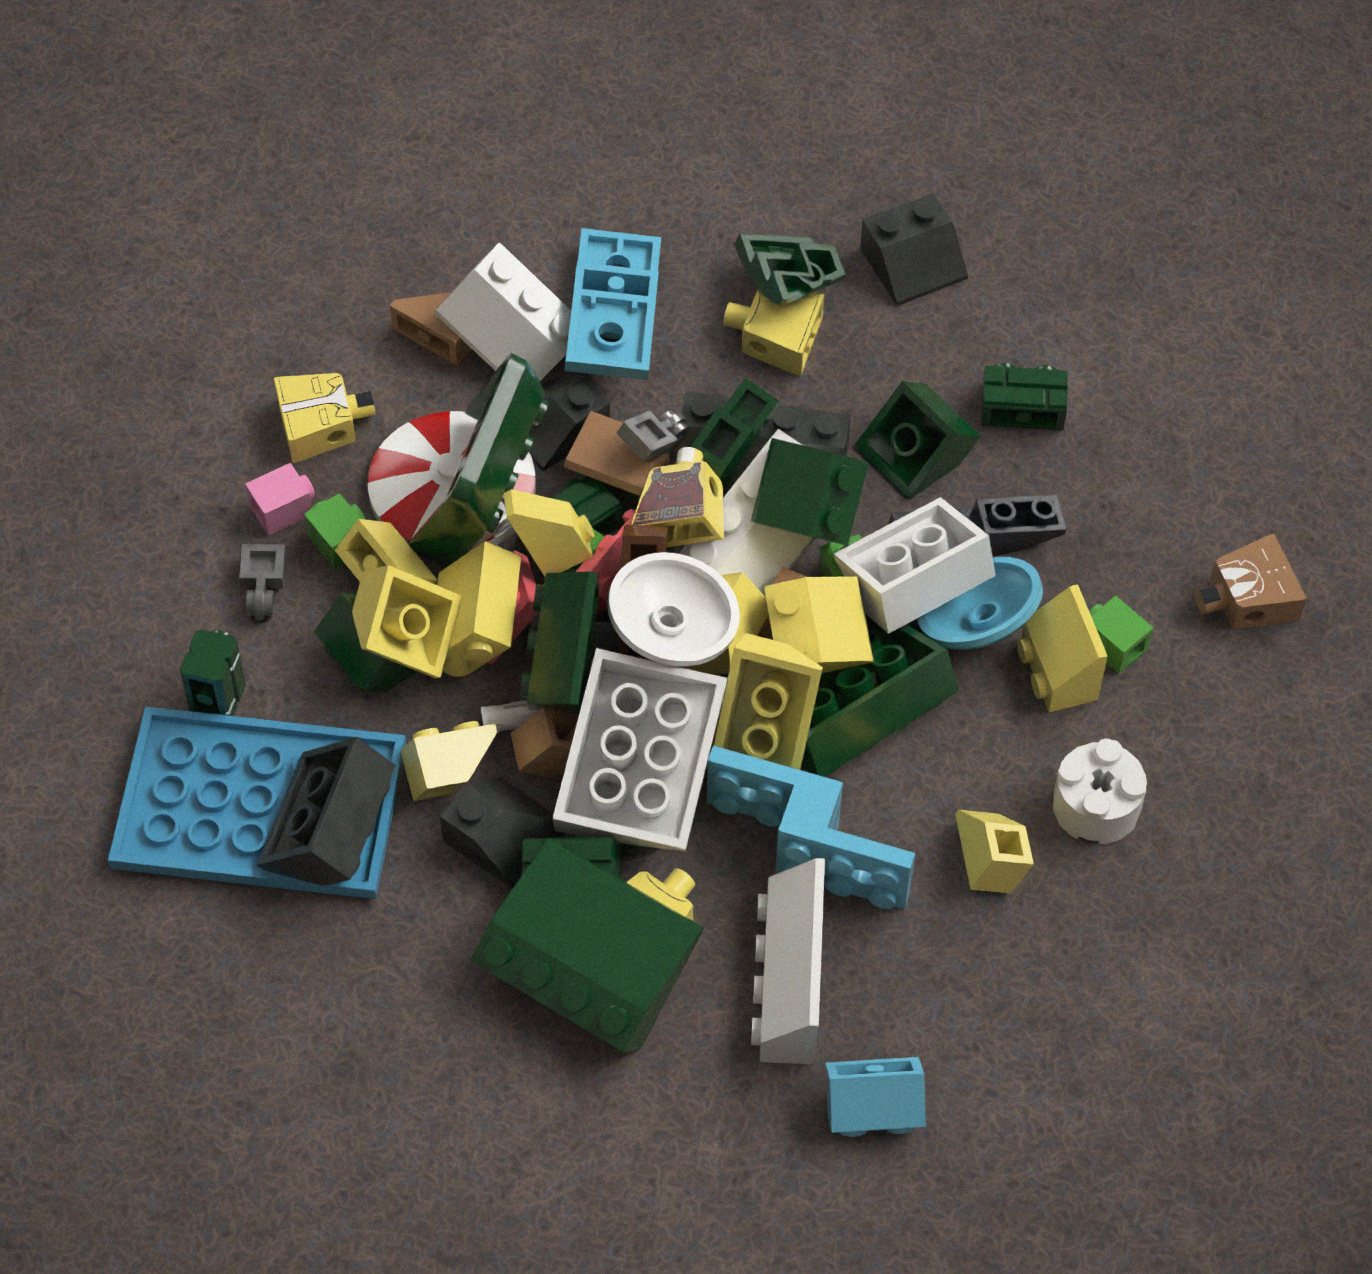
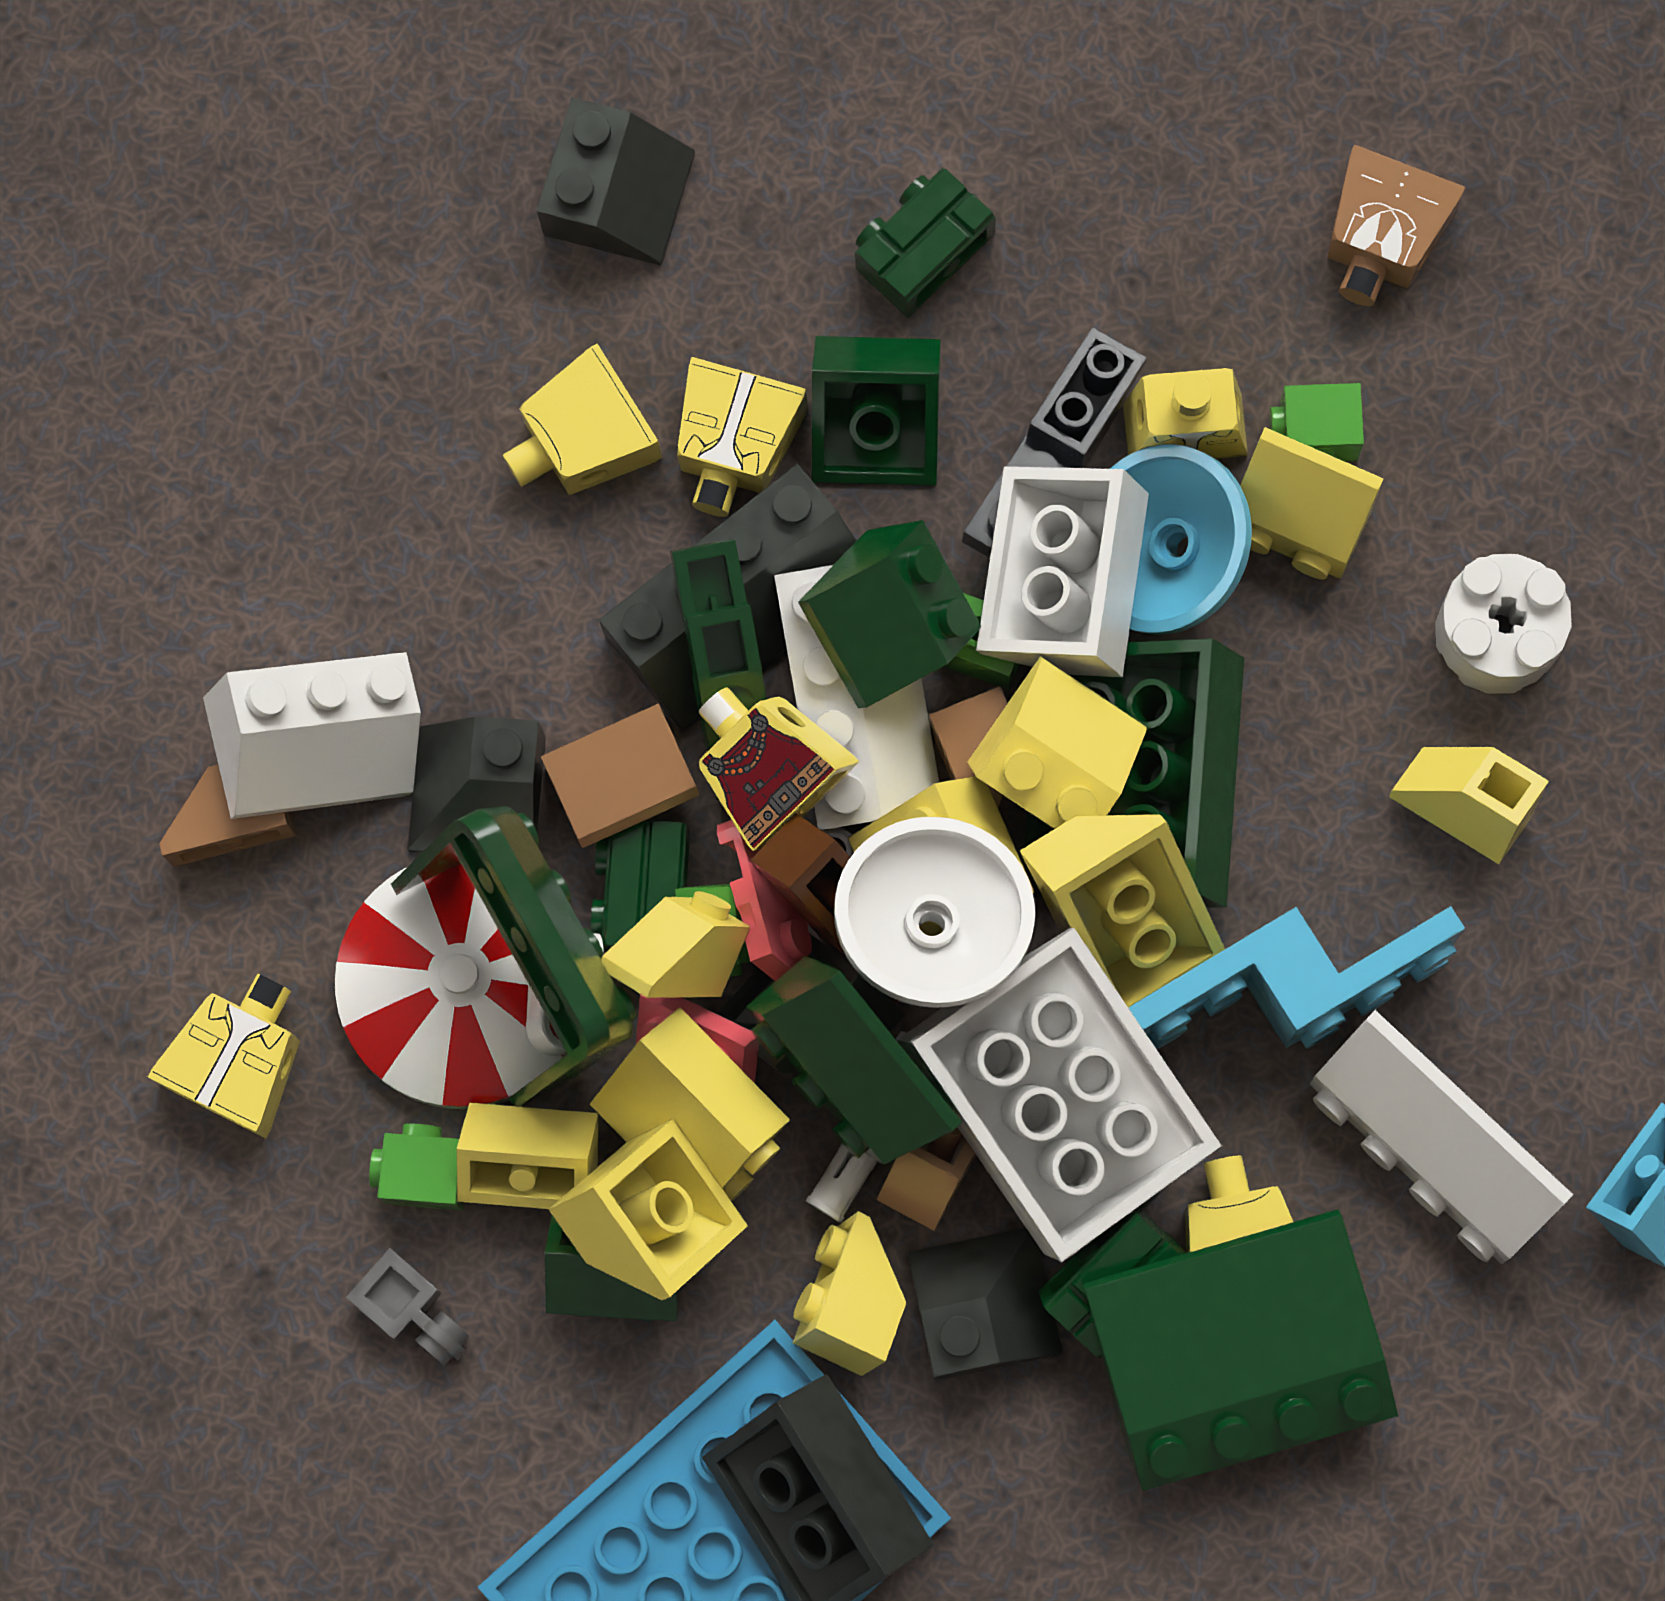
camera: 40 degrees left, 20 degrees up
(213, 673) = (515, 1480): dark green brick -> none
(280, 498) = (318, 1199): bright pink brick -> none
(613, 304) = (397, 594): medium azure bracket -> none
(651, 435) = (644, 719): flat silver plate -> none
(788, 265) = (524, 351): dark green slope -> none
(844, 384) = (735, 431): none -> light yellow torso
(1060, 562) = (1188, 410): none -> light yellow torso

